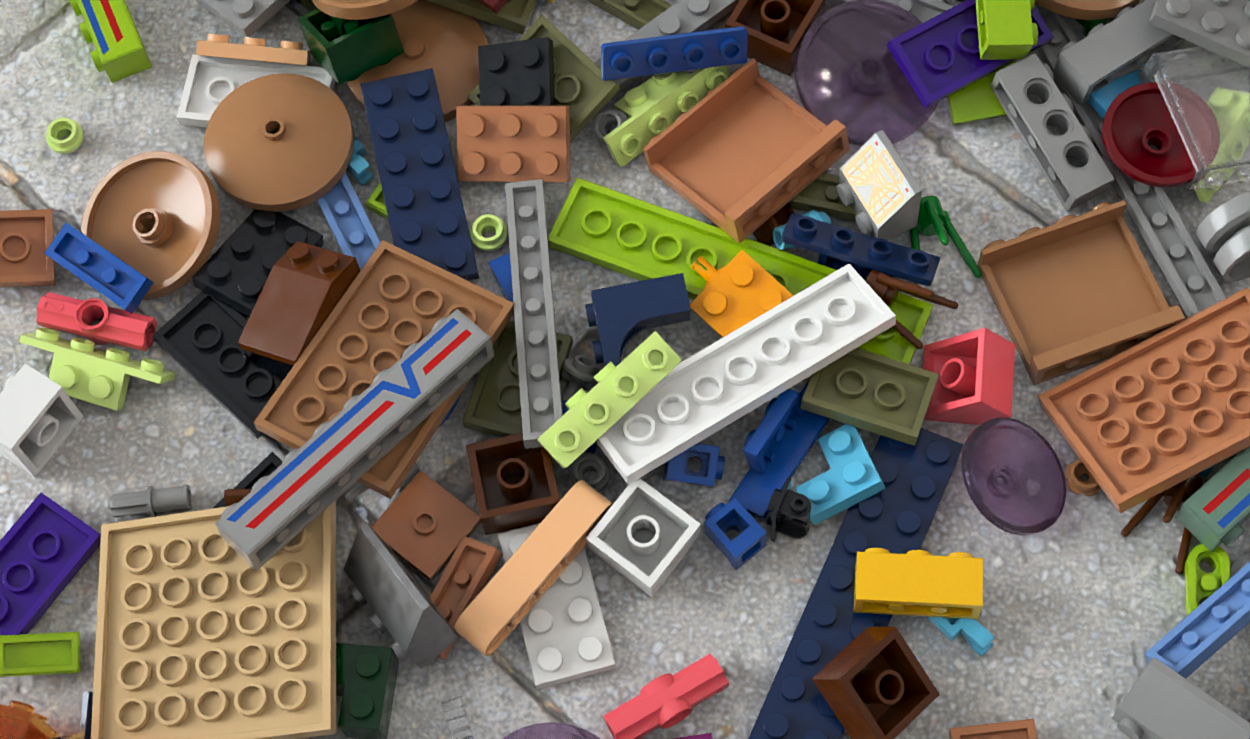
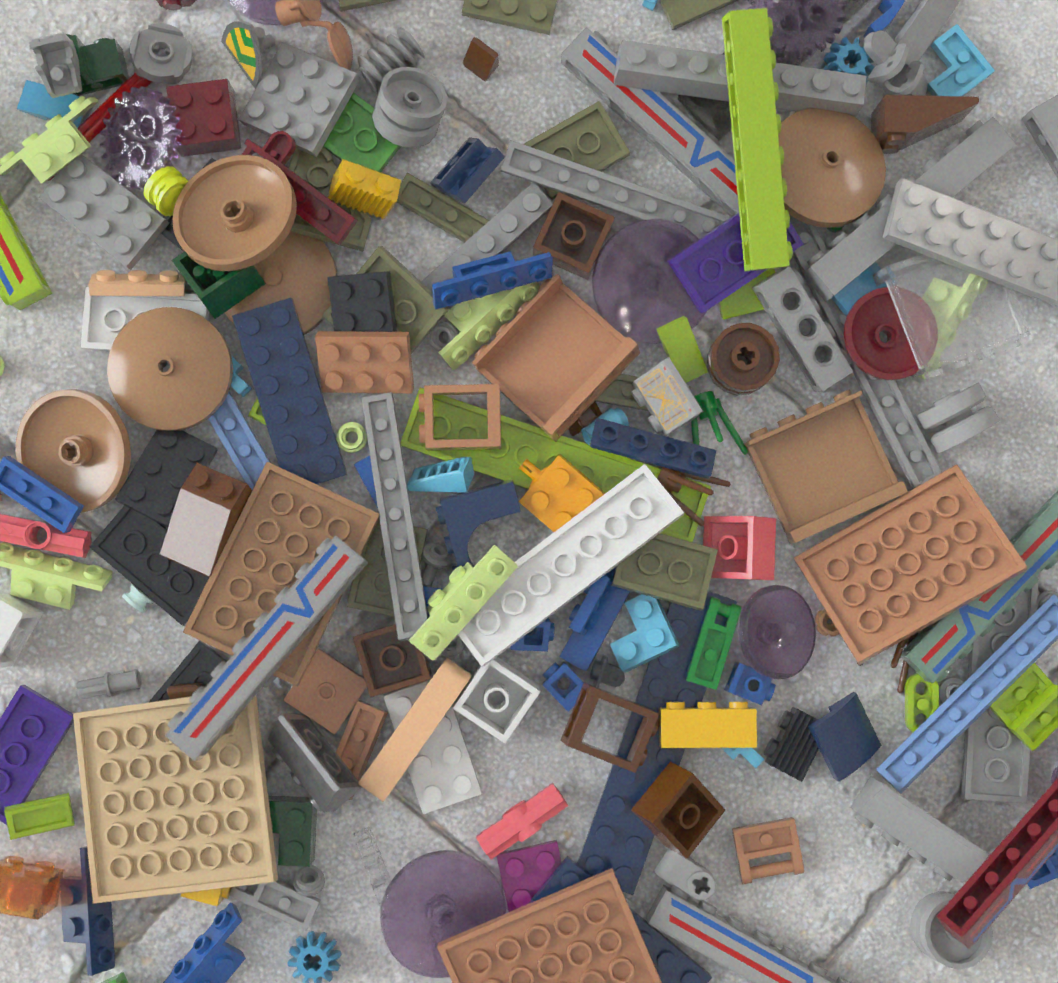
camera: 10 degrees left, 20 degrees up
(203, 400) = (137, 599): none -> light aqua bush
(599, 274) = (444, 476): none -> medium azure slope
(625, 235) = (426, 405): none -> nougat window
(775, 606) = (582, 715): none -> reddish brown window
(904, 138) = (682, 348): none -> lime tile
(928, 487) = (713, 644): none -> green plate
(963, 541) = (739, 680): none -> blue brick
(976, 162) = (756, 346): none -> reddish brown wheel
(1038, 623) = (794, 746): none -> black brick
(1103, 614) = (845, 737): none -> dark blue slope

